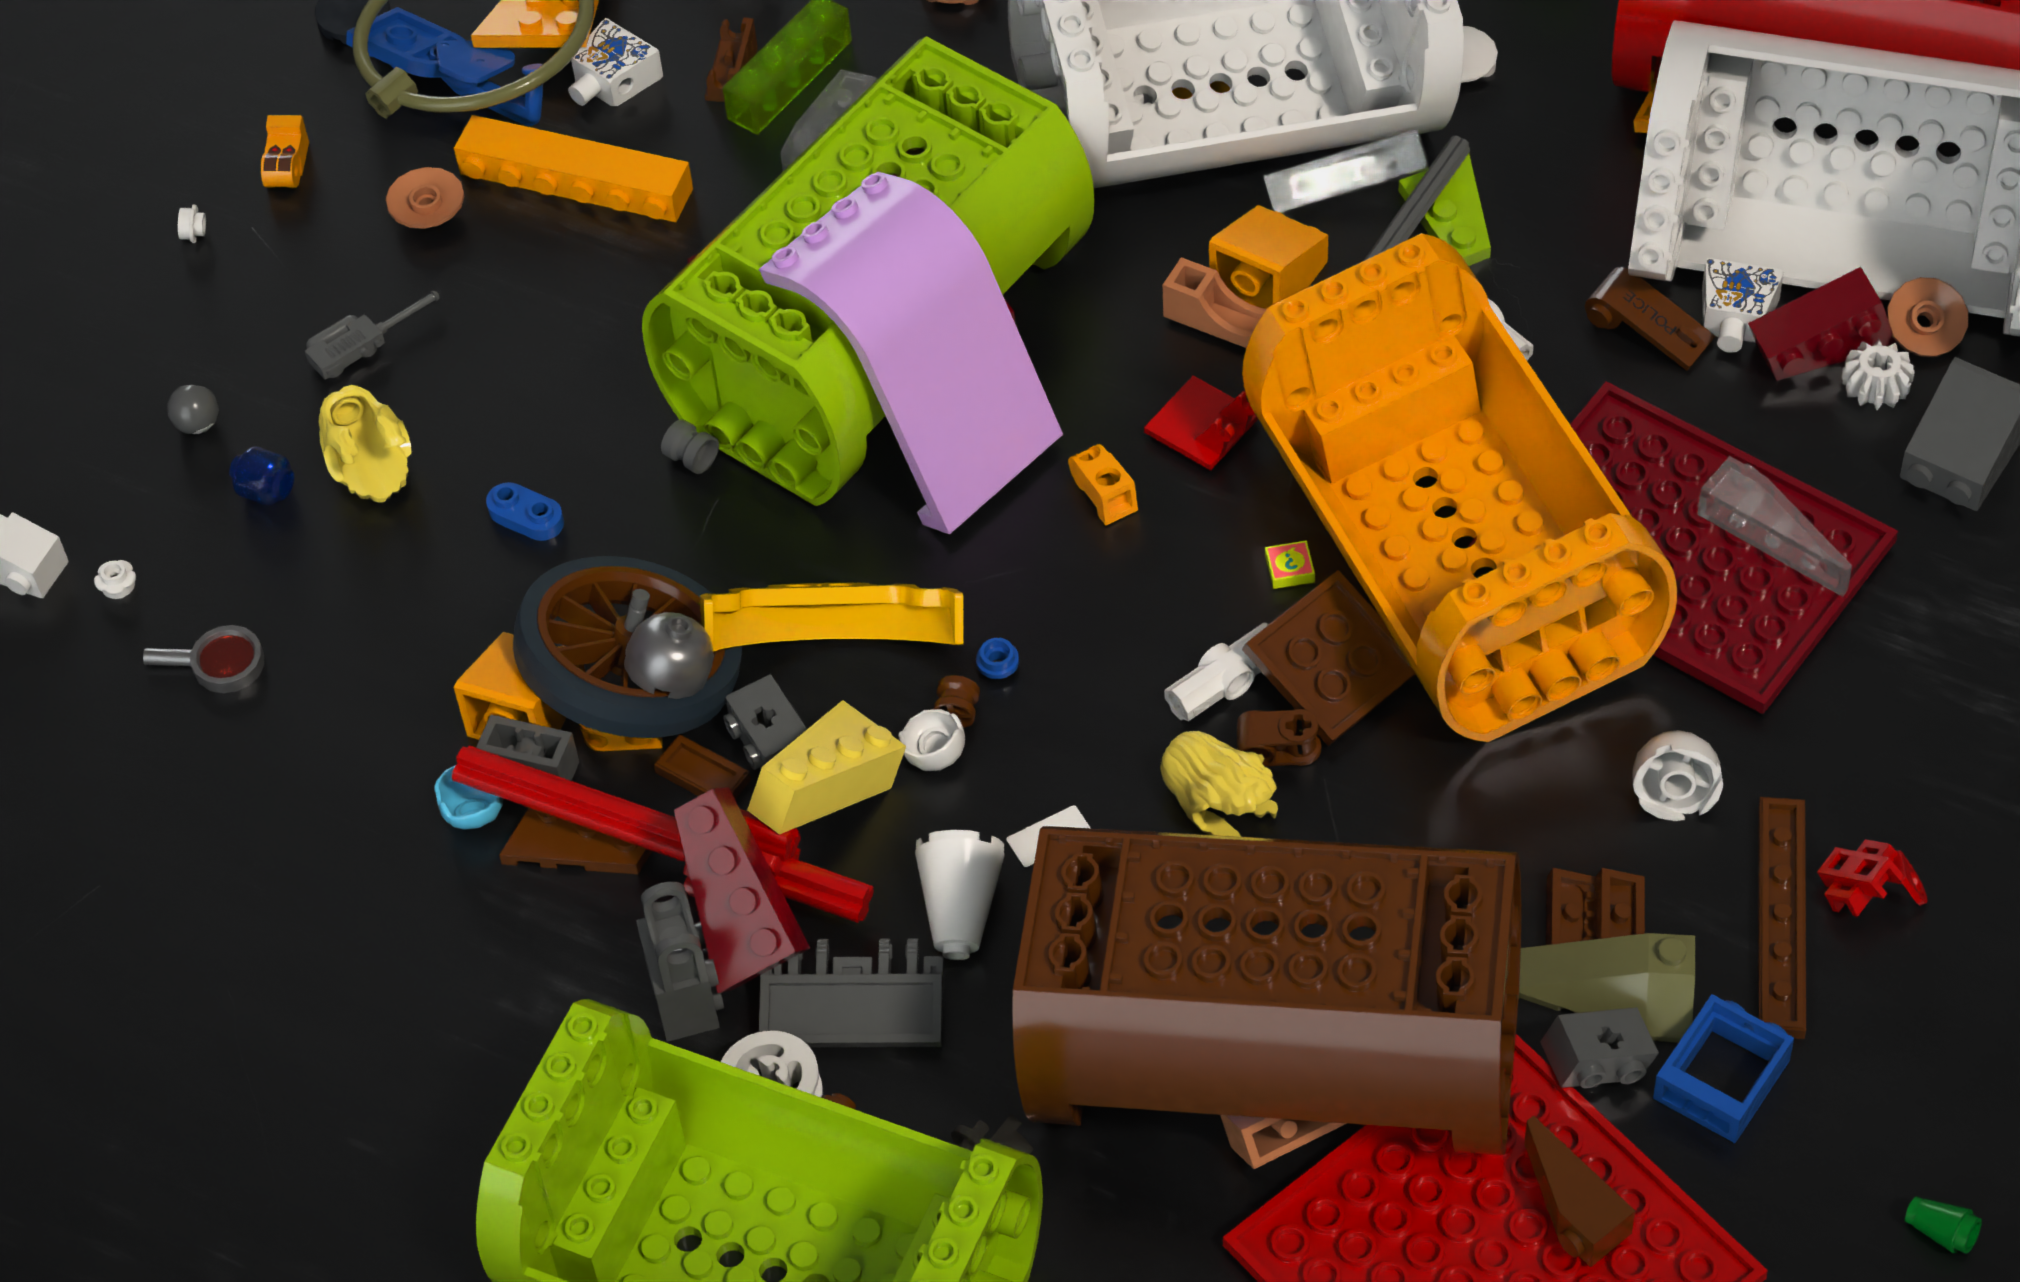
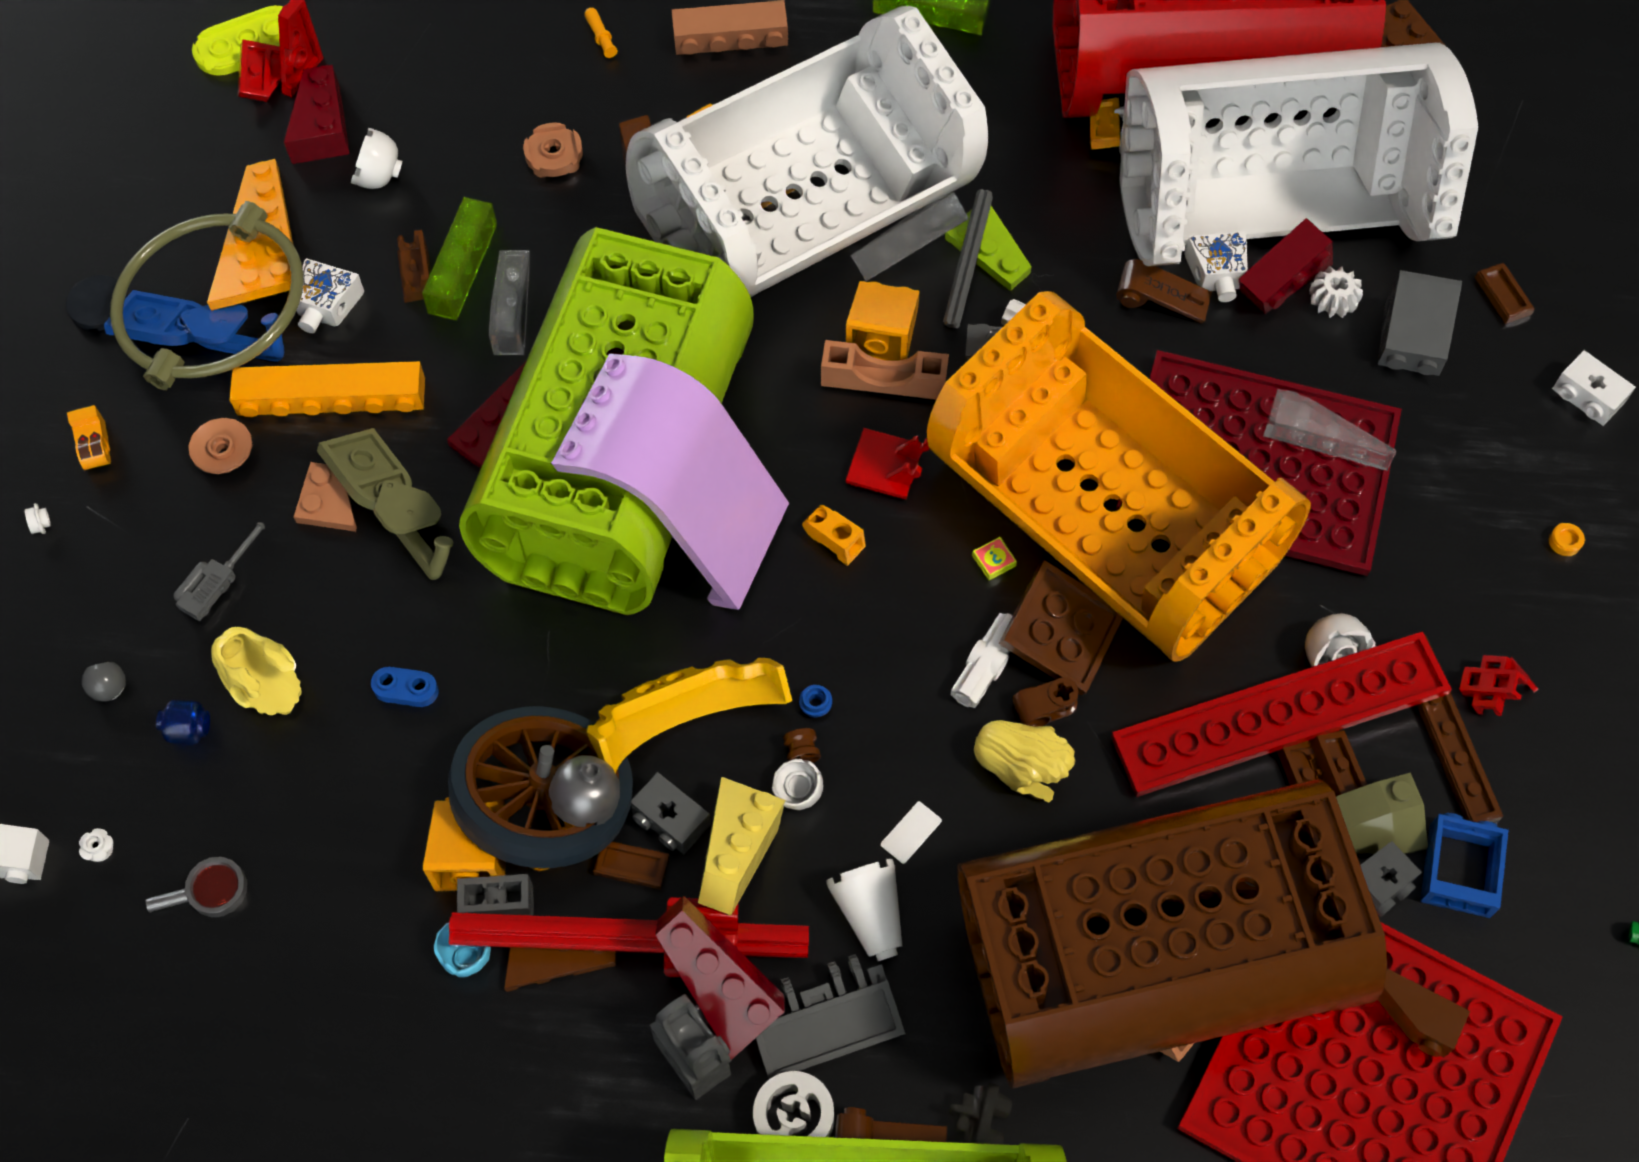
camera: 25 degrees left, 10 degrees up
(520, 288) = (324, 500): none -> nougat wing
(590, 285) = (383, 485): none -> olive plate
(686, 444) = (514, 596): dark grey wheel -> none
(1591, 827) = (1279, 713): none -> red plate
(1939, 304) = (1361, 236): nougat dish -> none

